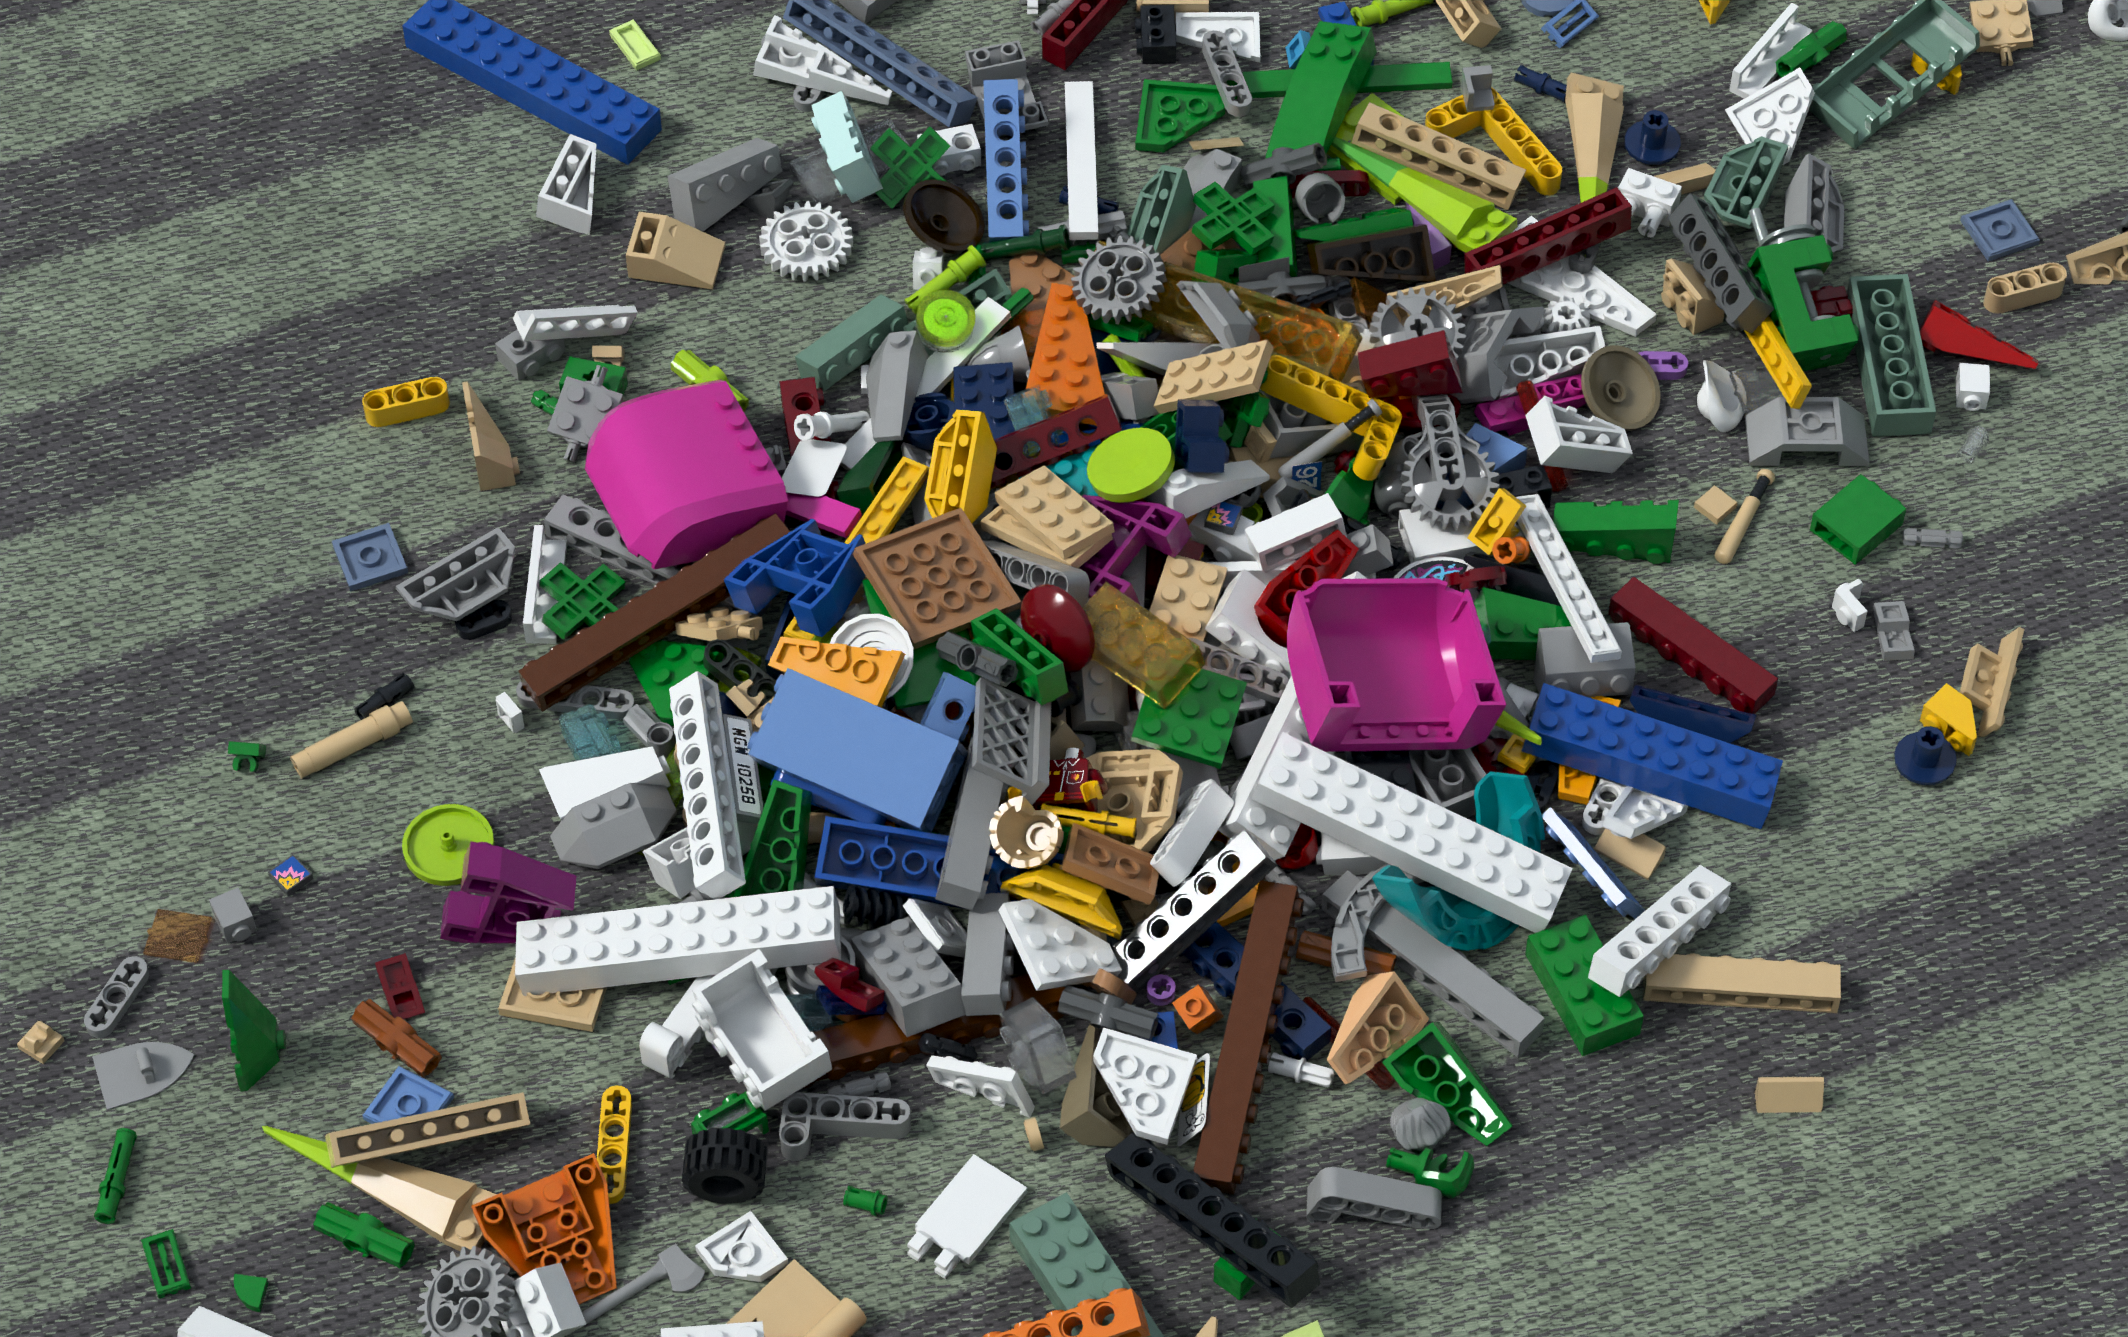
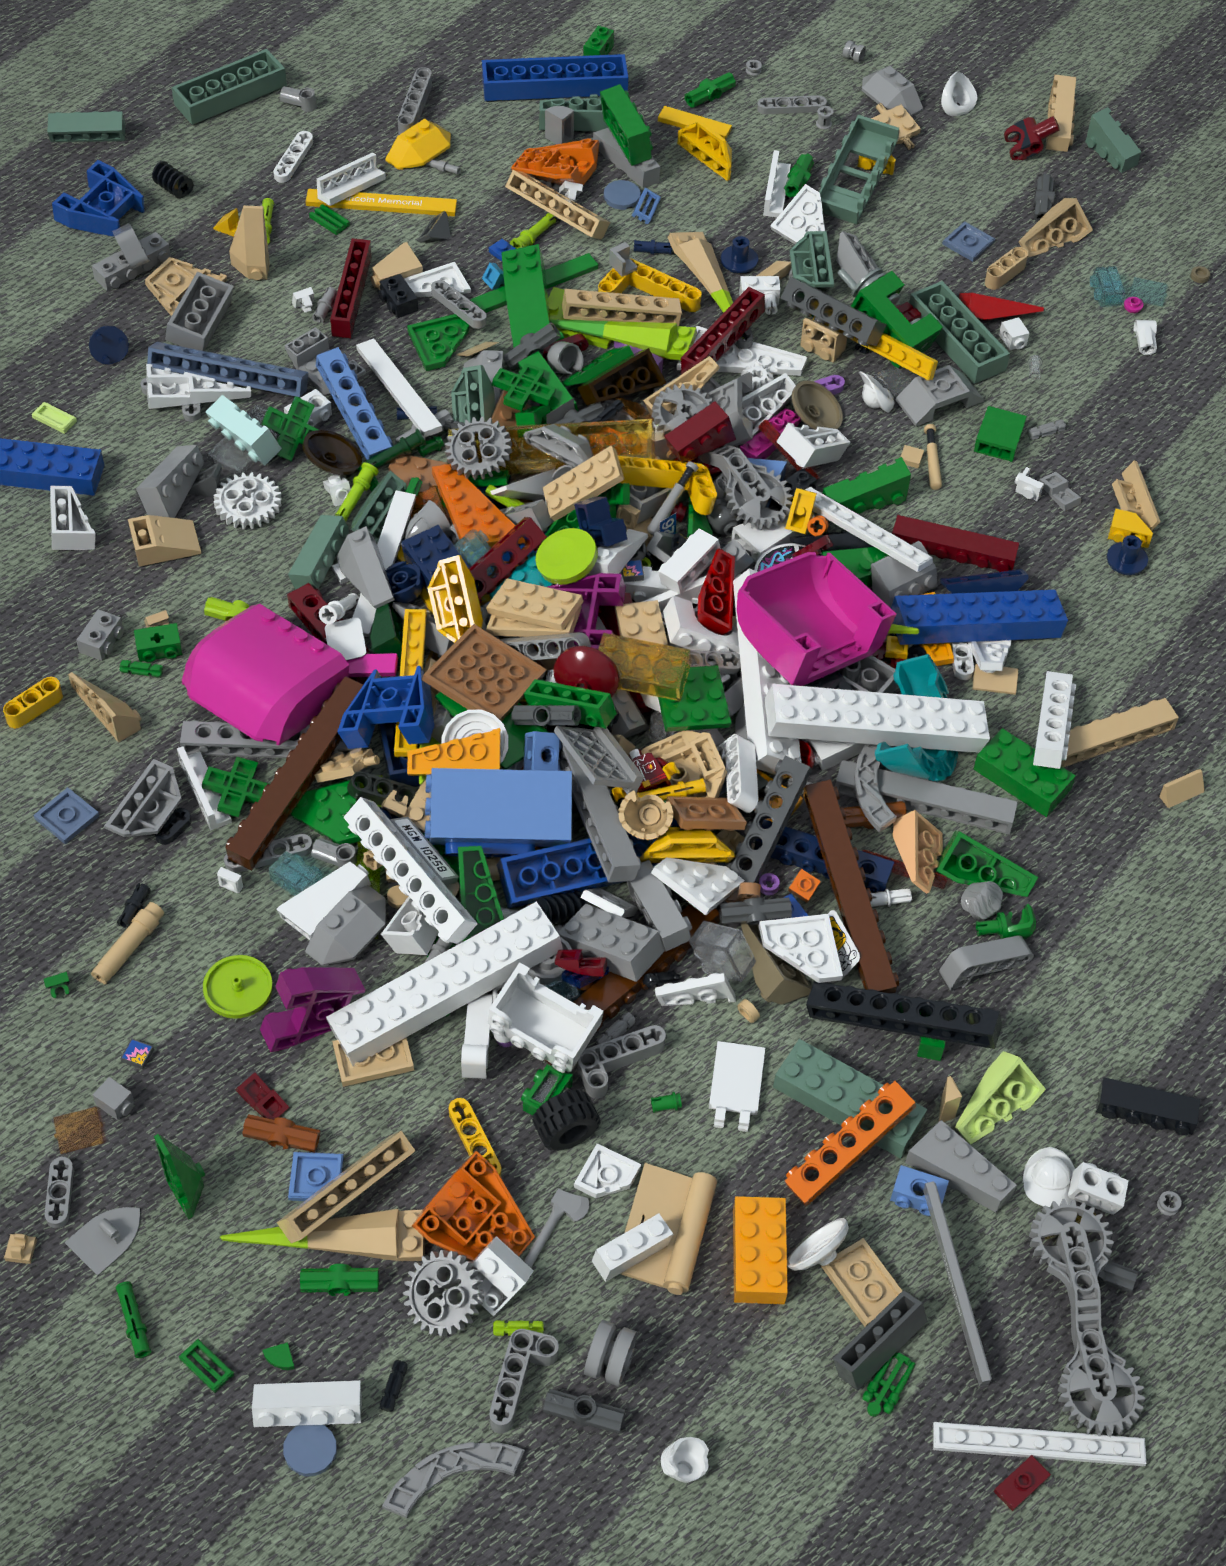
camera: 30 degrees left, 0 degrees up
(574, 322) = (124, 606): white fence -> none
(581, 409) = (165, 662): light grey plate -> none
(945, 321) = (379, 513): clear neon green piece -> none
(1595, 868) = (978, 693): plate -> none

